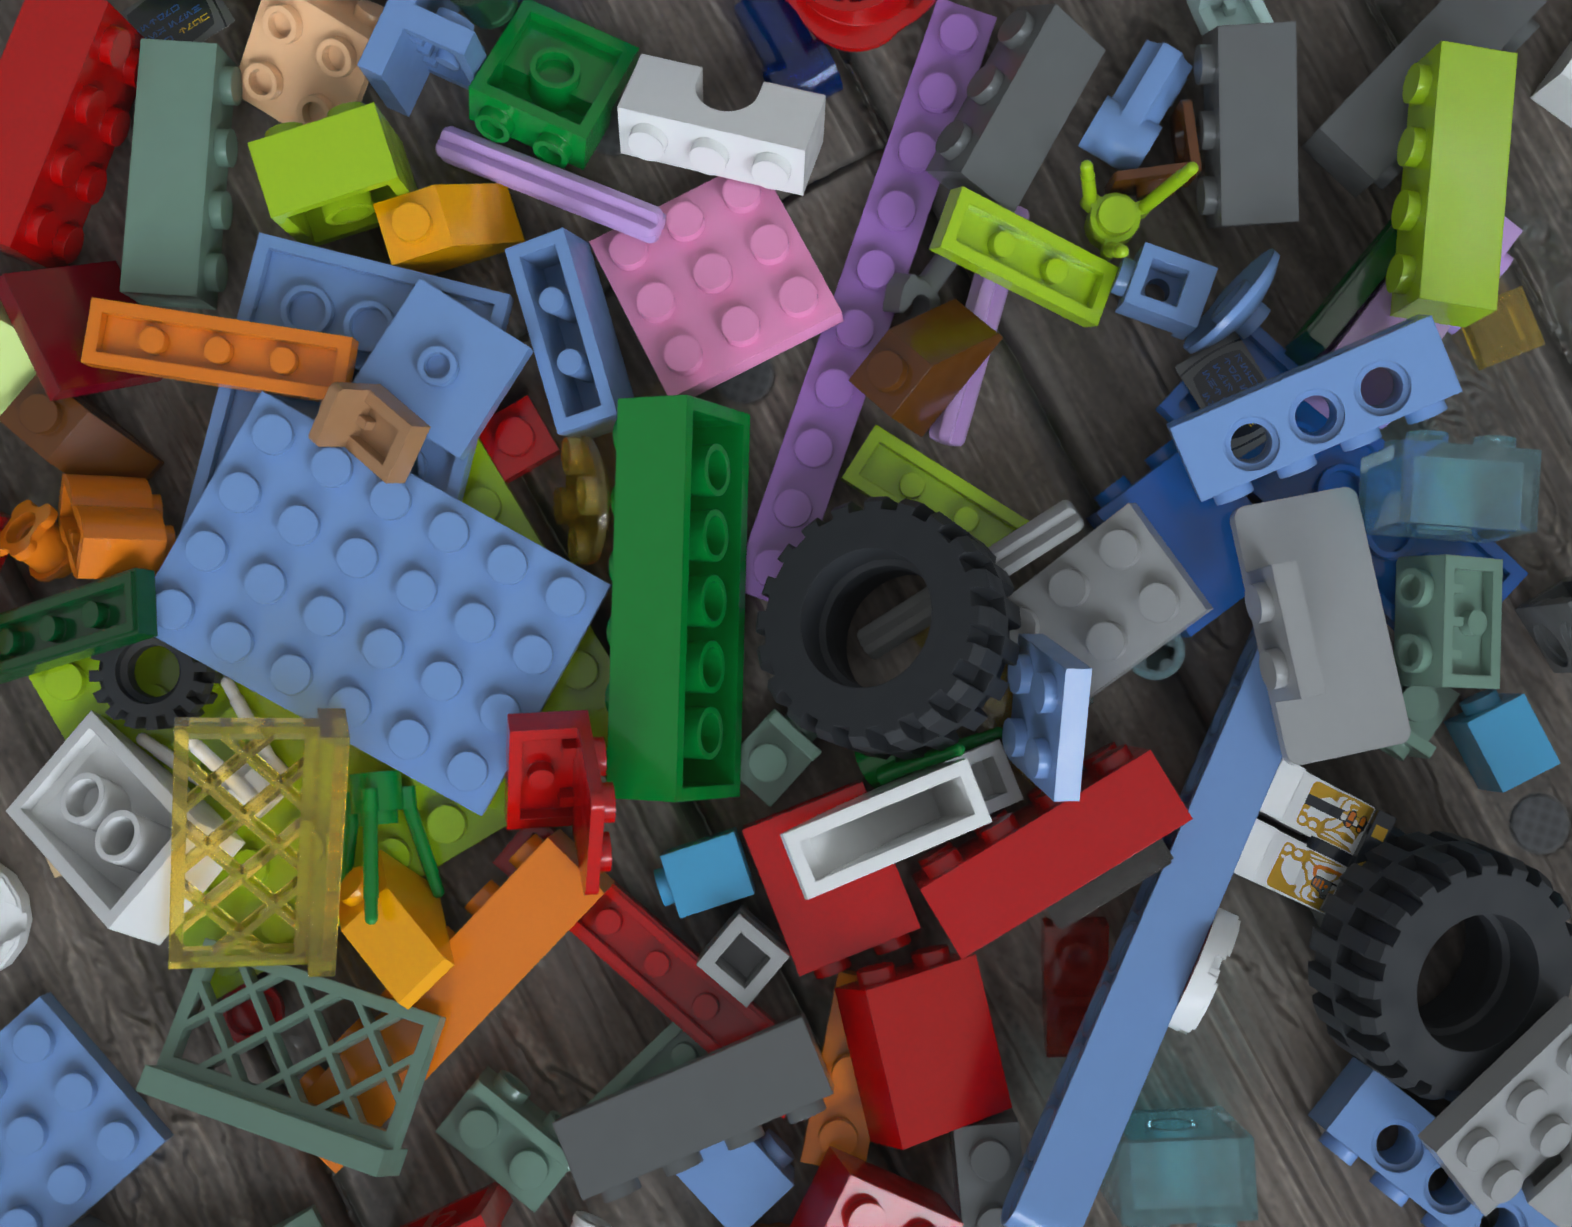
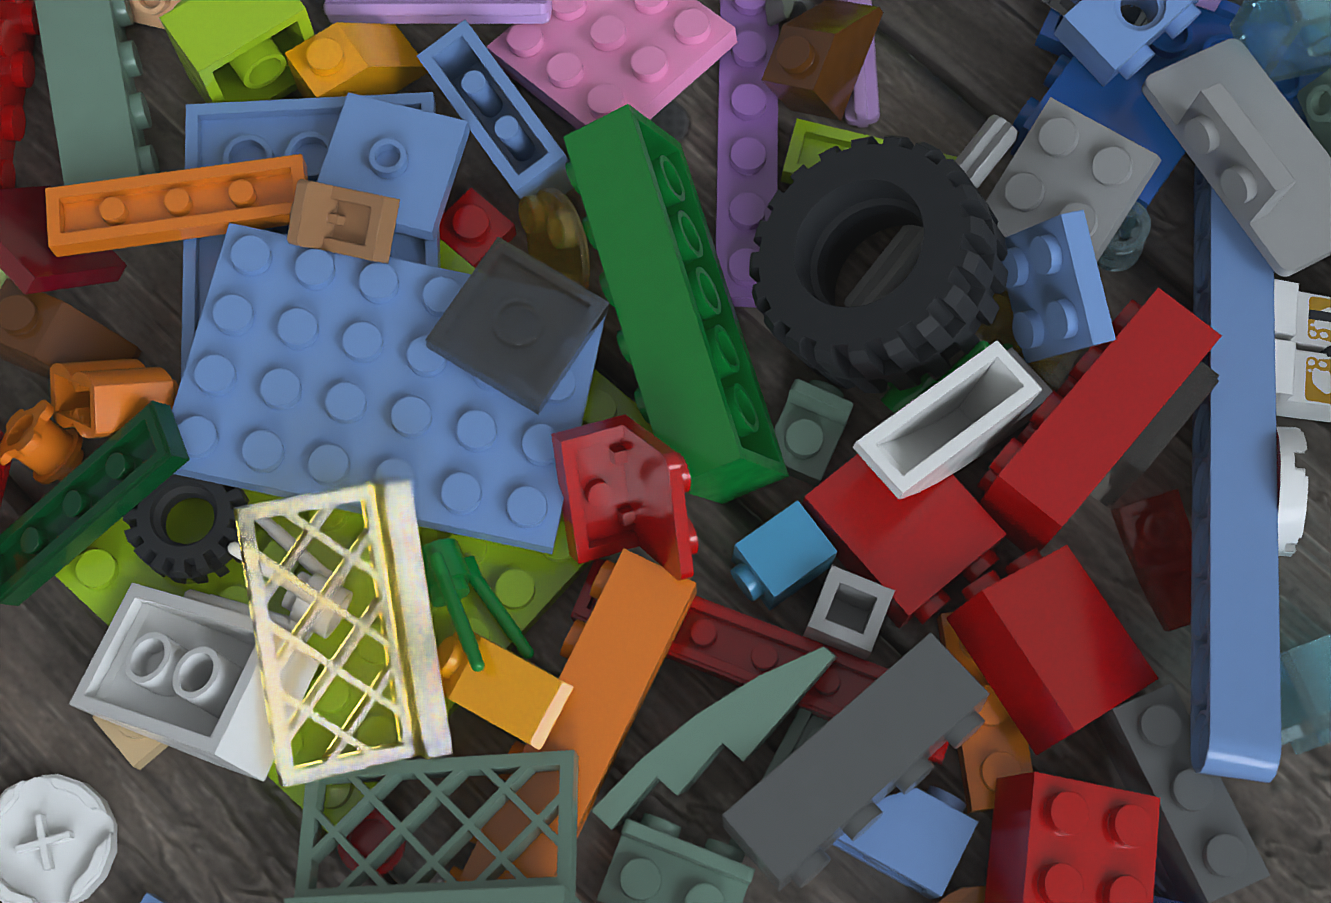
camera: 25 degrees left, 15 degrees down
(509, 590) = (517, 325): none -> clear smoke tile
(598, 1025) = (737, 721): none -> sand green slope

